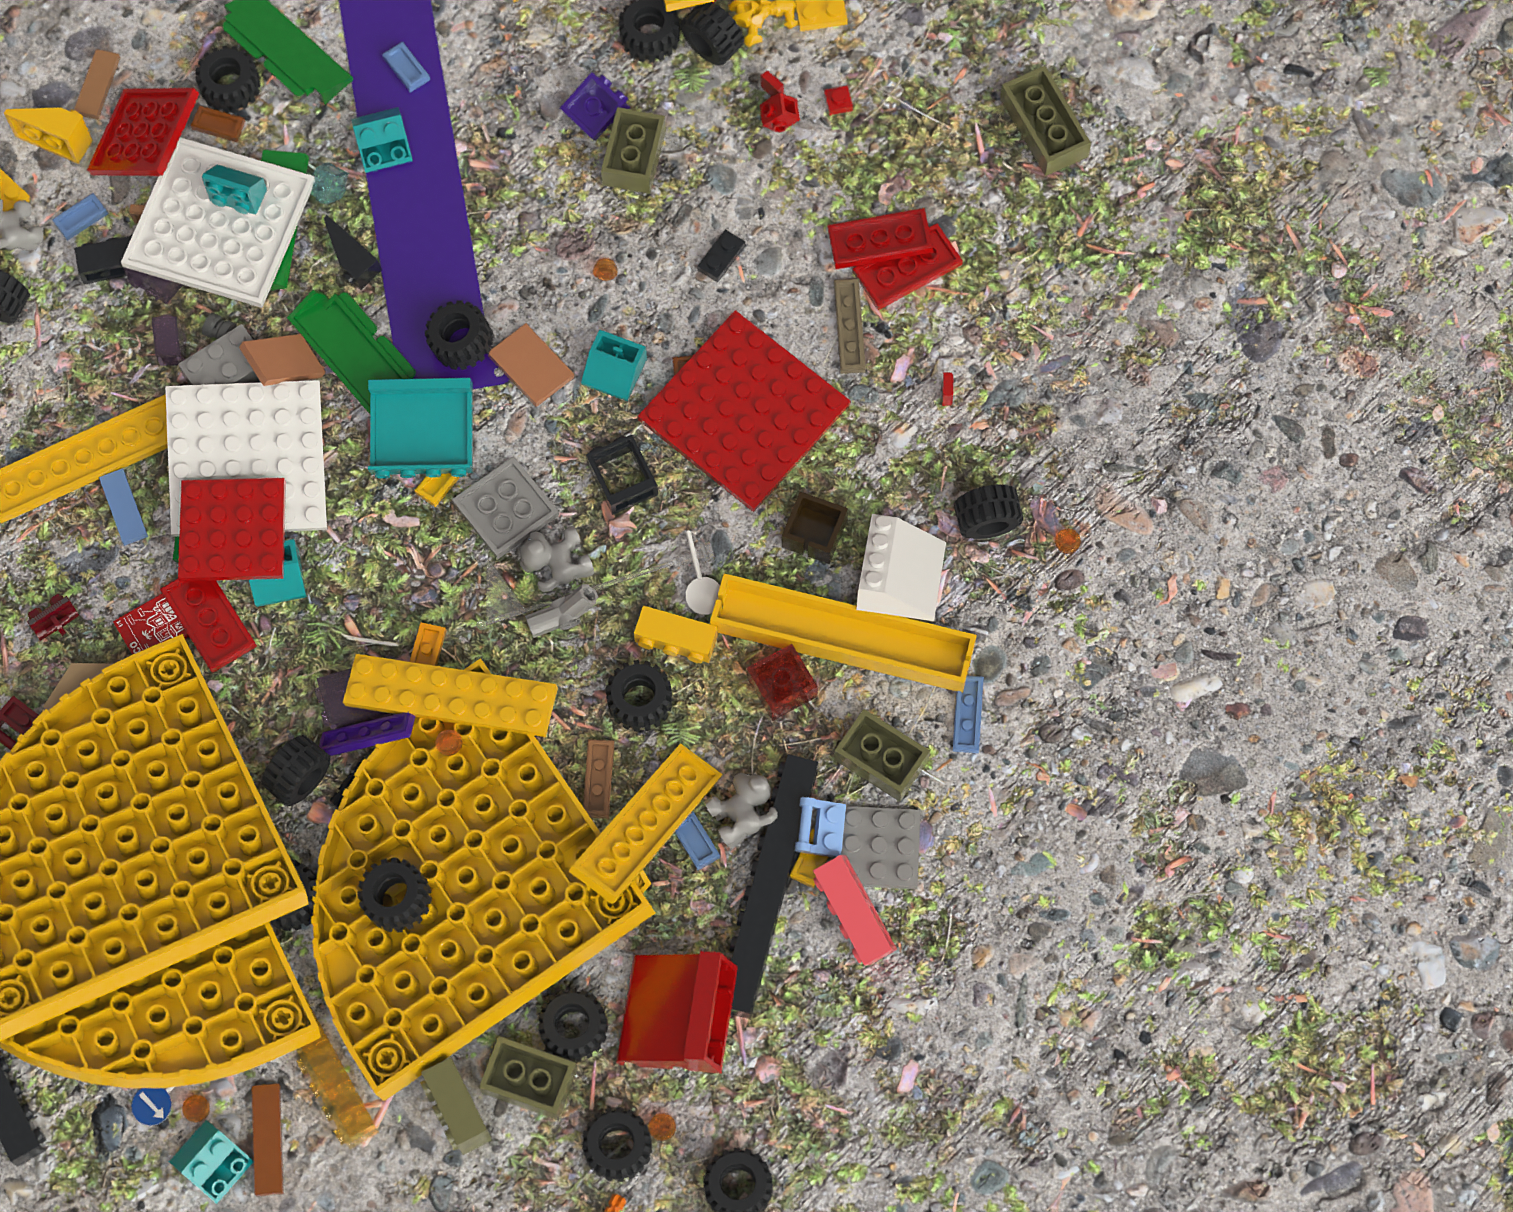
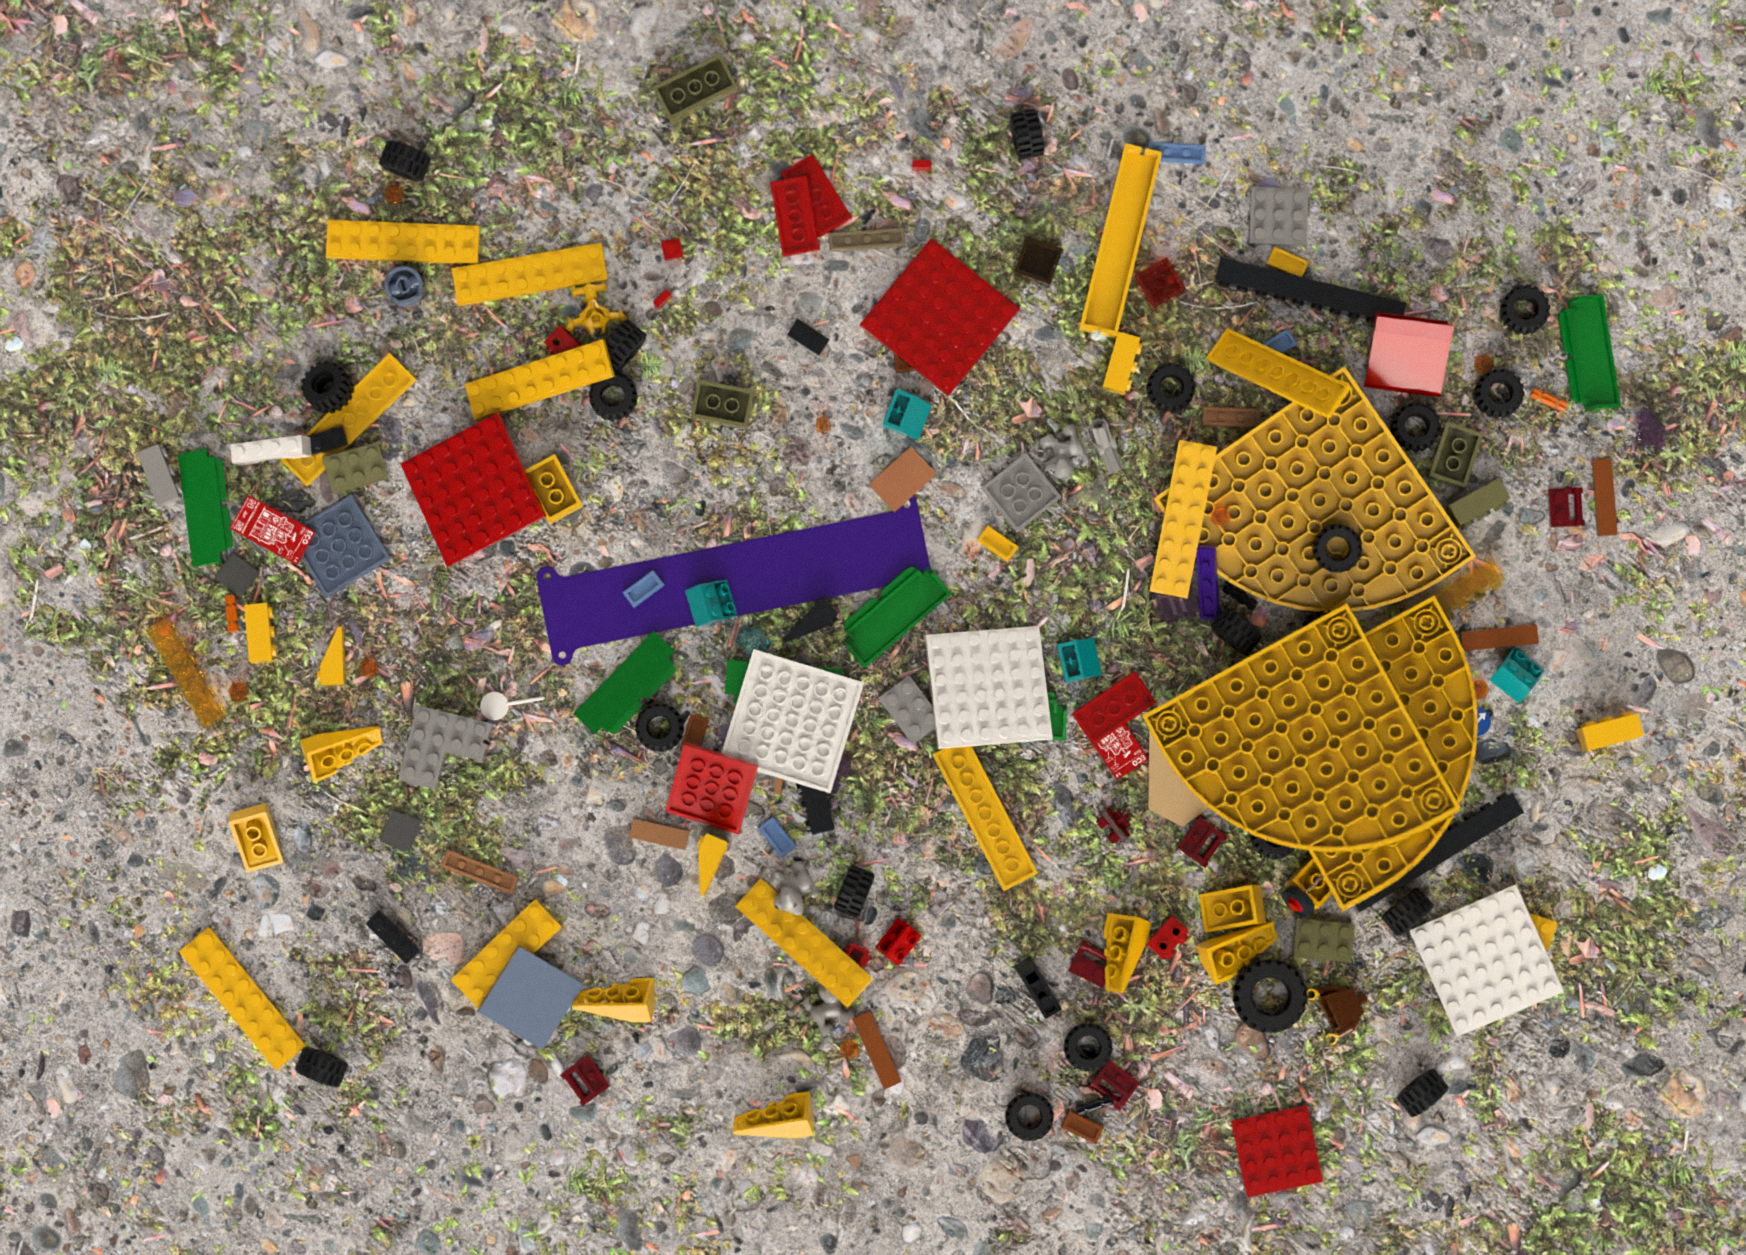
camera: 90 degrees left, 15 degrees up
(123, 507) = (1023, 781): medium blue tile -> none
(168, 340) = (890, 754): clear purple slope -> none
(216, 327) = (877, 714): dark grey wheel -> none
(232, 529) = (1052, 689): red plate -> none
(234, 189) = (771, 705): teal slope -> none
(282, 359) = (907, 665): nougat tile -> none
(421, 427) = (963, 556): teal panel -> none
(428, 644) = (1135, 545): light orange plate -> none
(446, 323) = (871, 520): black tyre -> none
(594, 105) = (681, 436): dark purple plate -> none
(630, 496) = (1011, 397): black window -> none
(702, 591) = (1086, 344): white piece -> none
(750, 792) = (1243, 305): light grey animal -> none
(779, 112) = (688, 293): red brick -> none
(828, 827) = (1269, 250): light blue plate -> none
(854, 910) = (1329, 231): coral brick -> none
(881, 755) = (1213, 212): olive brick -> none
(900, 570) = (1073, 198): white slope -> none
(1067, 541) = (1041, 79): clear orange plate -> none

